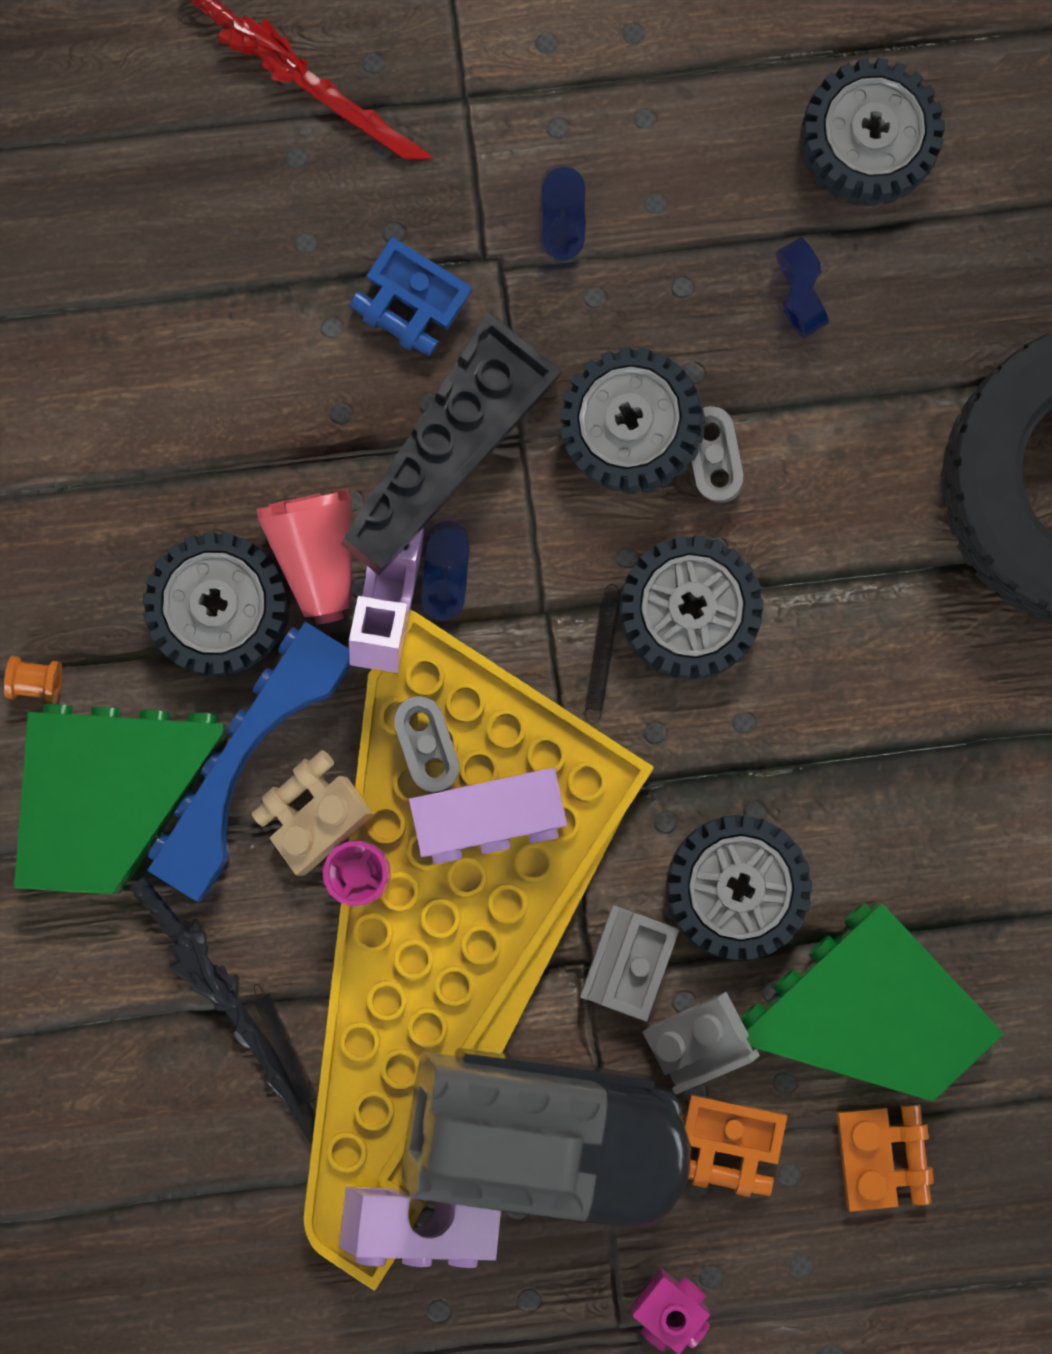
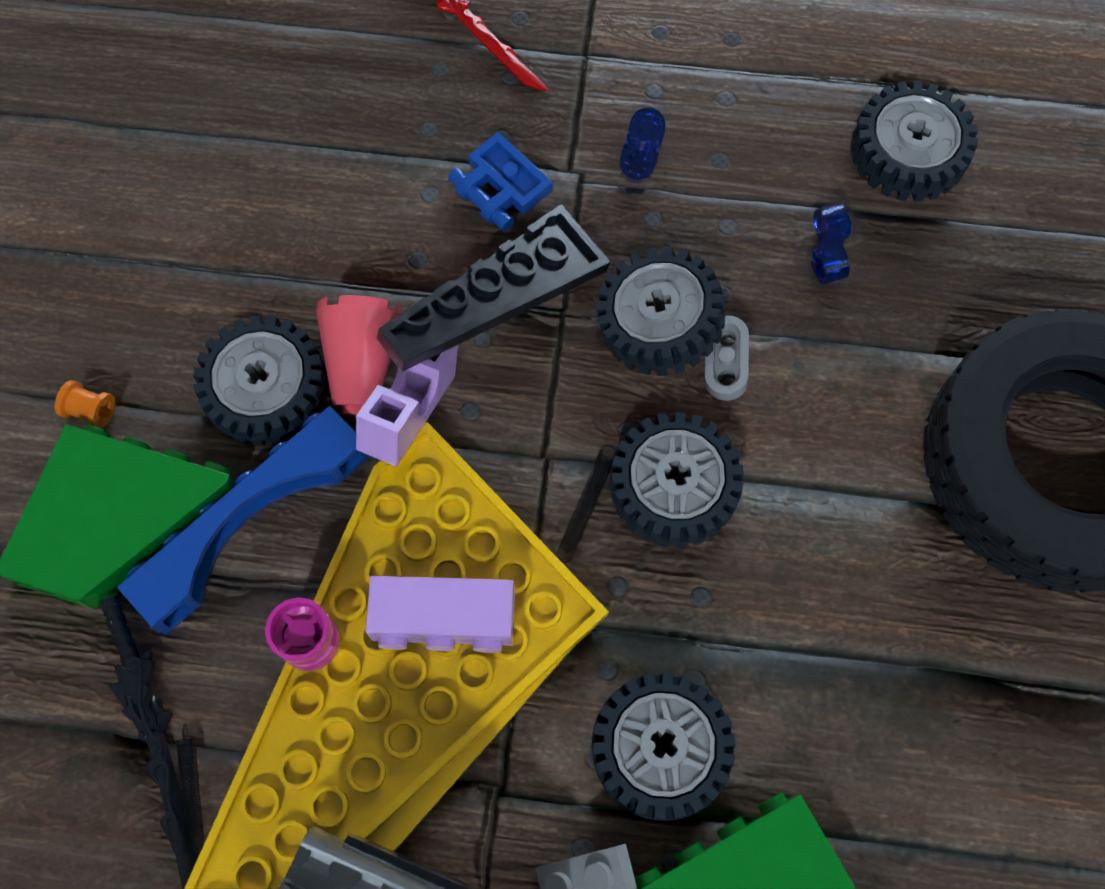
camera: 20 degrees right, 15 degrees down
(322, 823) = (305, 576): tan plate -> none
(425, 745) = (404, 538): light grey plate -> none
(445, 593) = (461, 418): clear blue piece -> none
(629, 963) = (539, 794): light grey plate -> none

